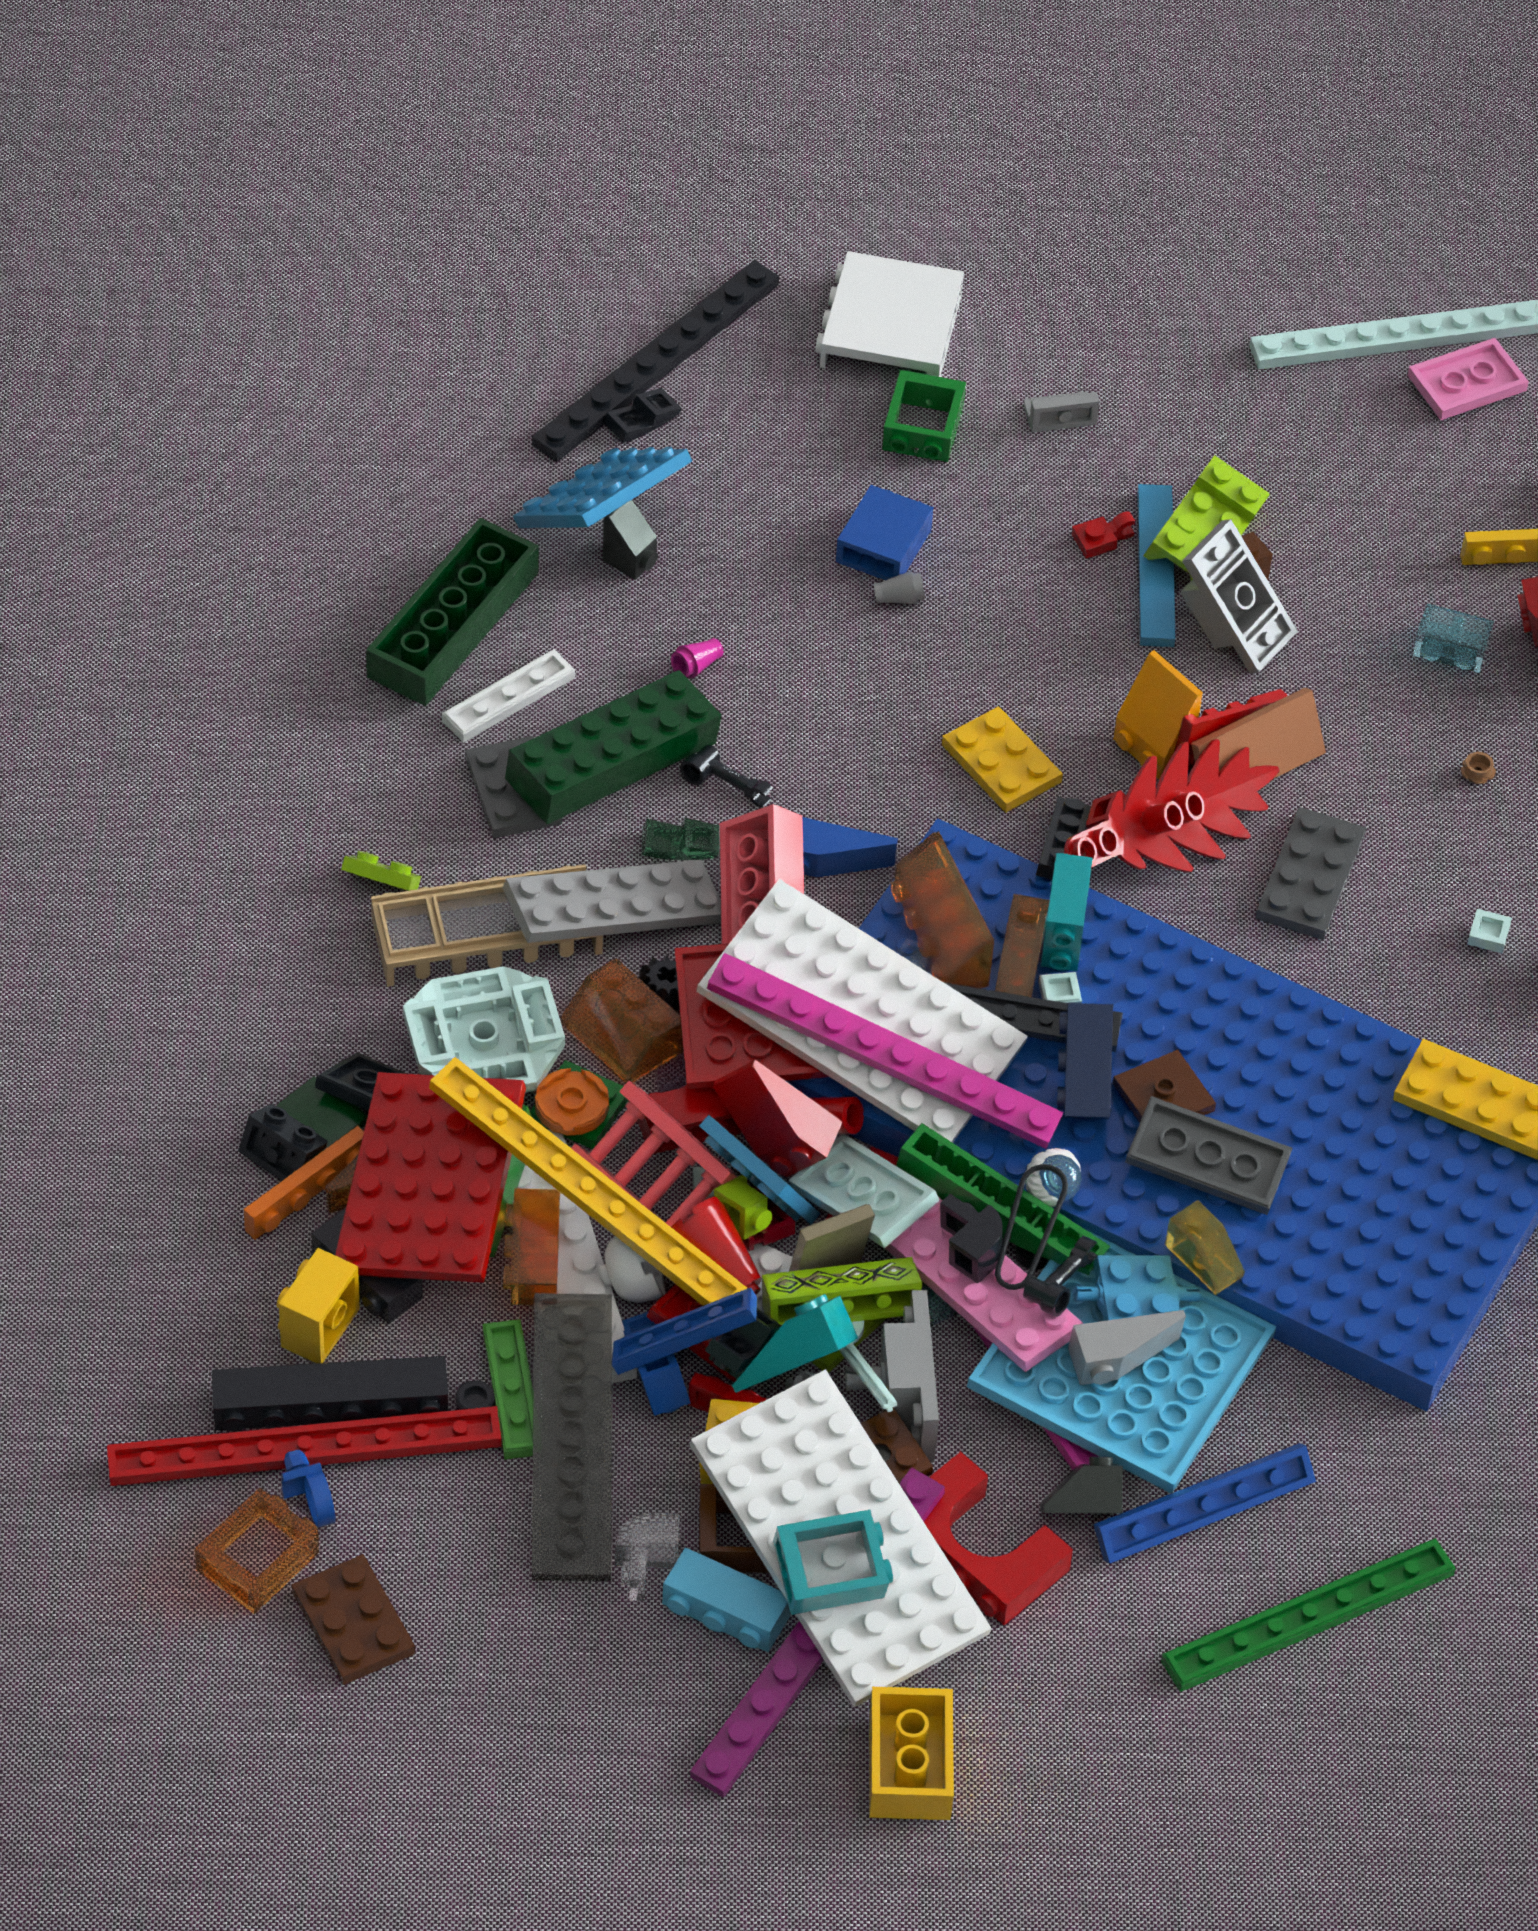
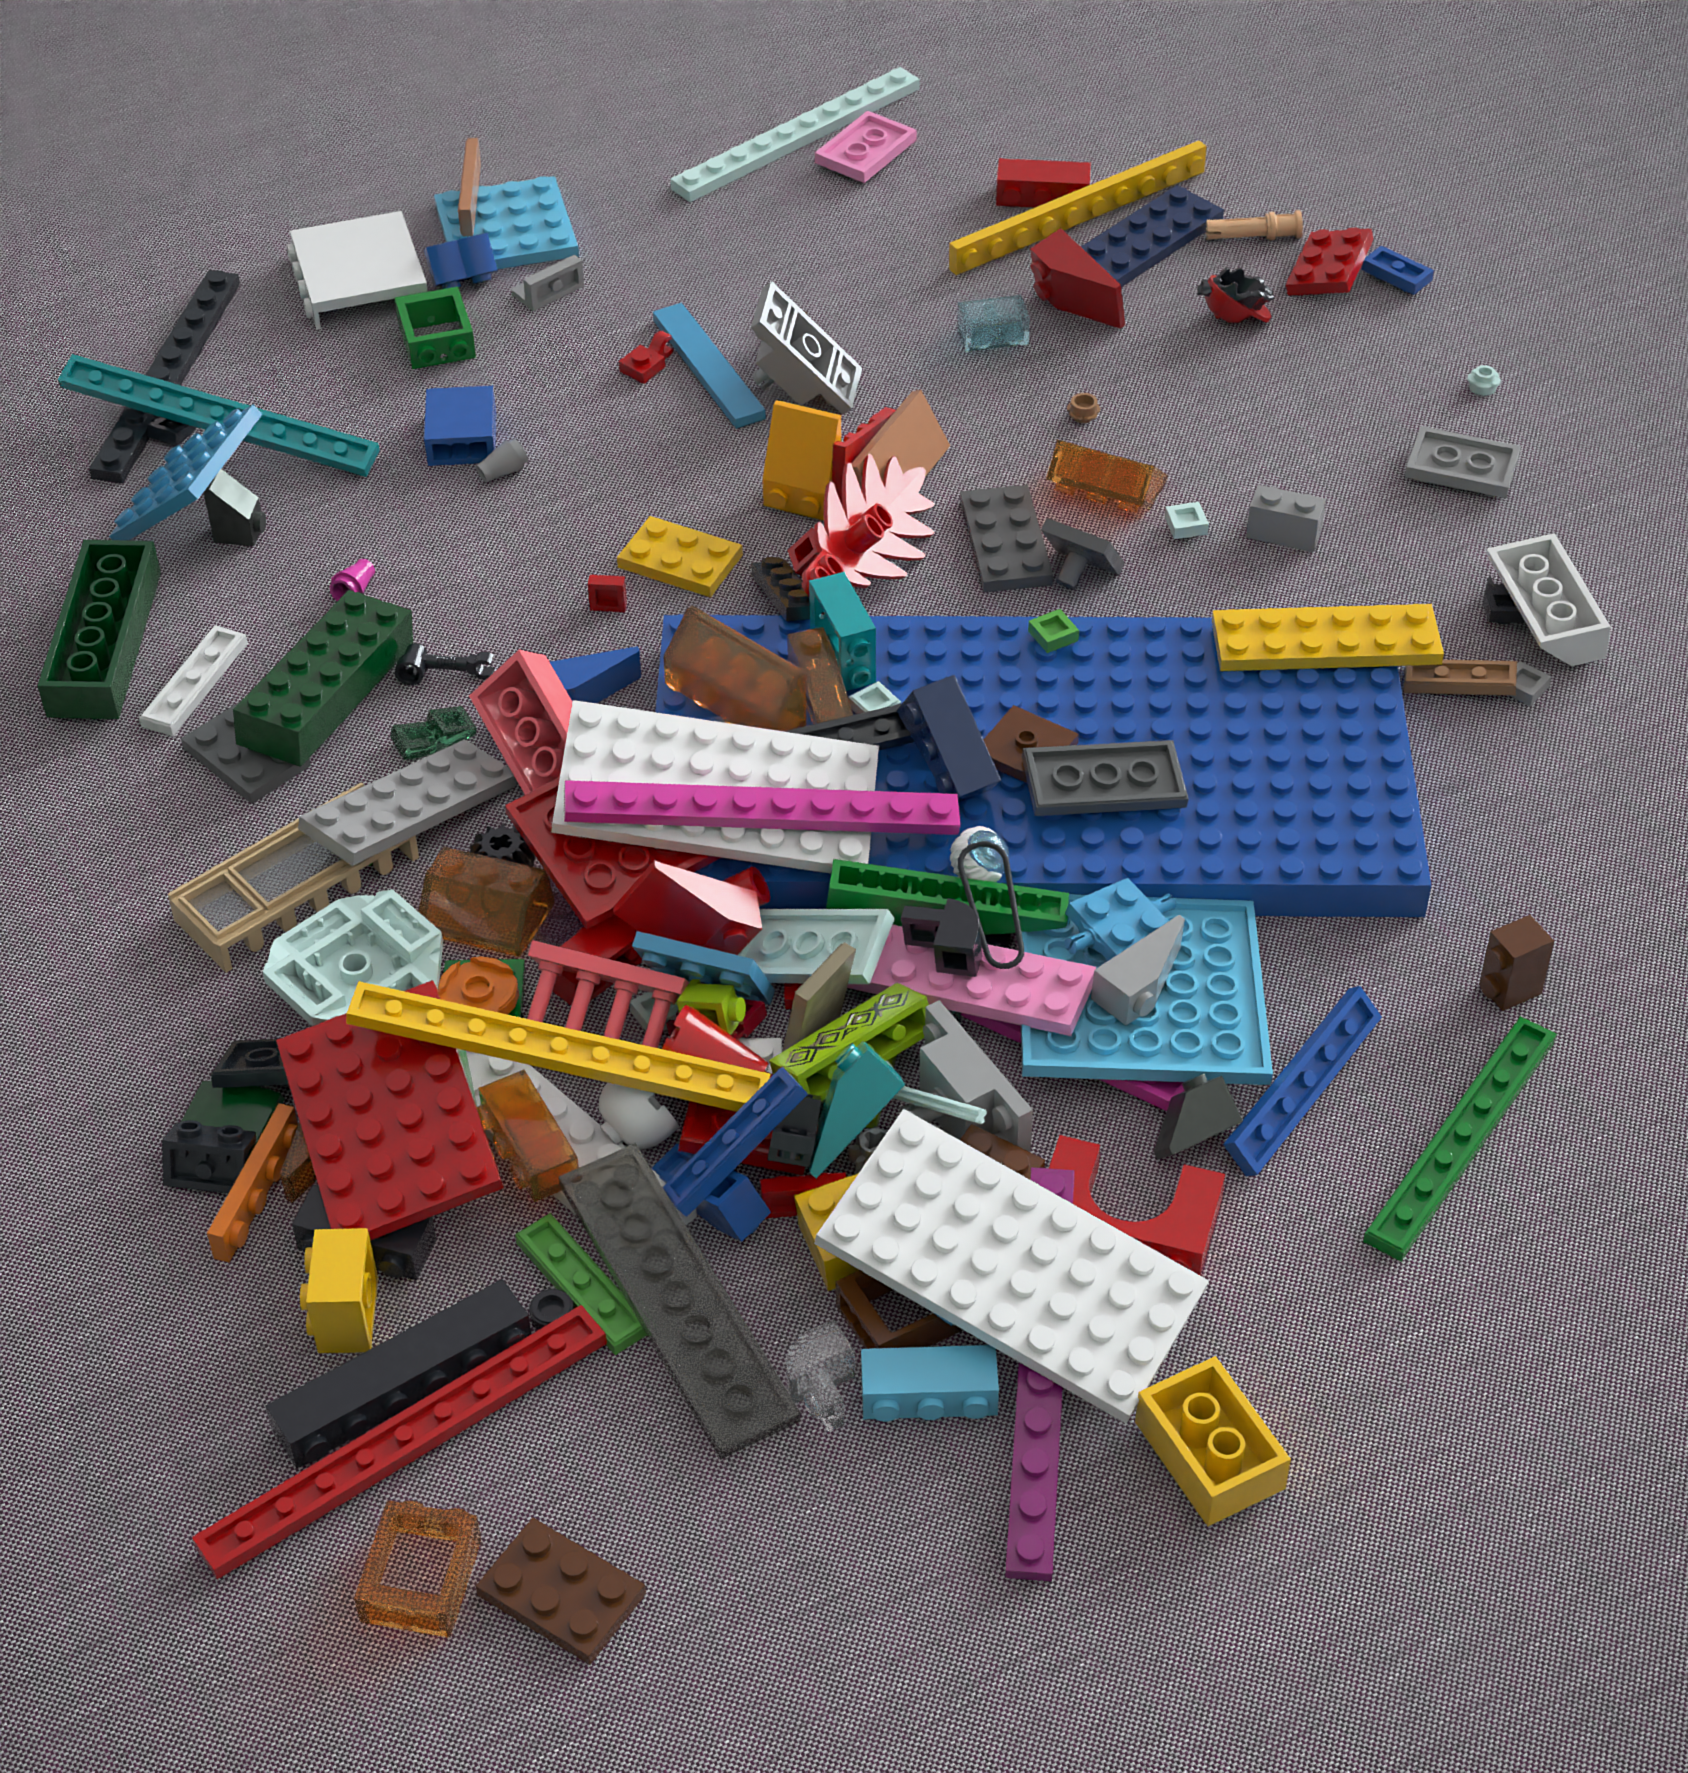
camera: 25 degrees left, 5 degrees down
(308, 1479) = (442, 1471): blue piece -> none
(367, 866) = (145, 872): lime plate -> none
(671, 429) = (203, 409): none -> teal plate
(806, 1599) = (1003, 1314): teal window -> none
(910, 770) = (607, 593): none -> red plate
(988, 352) = (461, 261): none -> blue brick
(1043, 271) = (469, 187): none -> nougat tile
(1050, 1293) = (1053, 951): black brick -> none
(1062, 323) = (521, 218): none -> medium azure plate
(1204, 1247) = (1158, 853): clear yellow slope -> none
(1215, 496) = (728, 310): lime piece -> none
(1267, 992) = (1053, 630): none -> bright green tile
(1359, 921) = (1080, 550): none -> dark grey tile
(1444, 852) = (1105, 477): none -> clear orange slope
(1455, 1489) = (1516, 962): none -> reddish brown brick

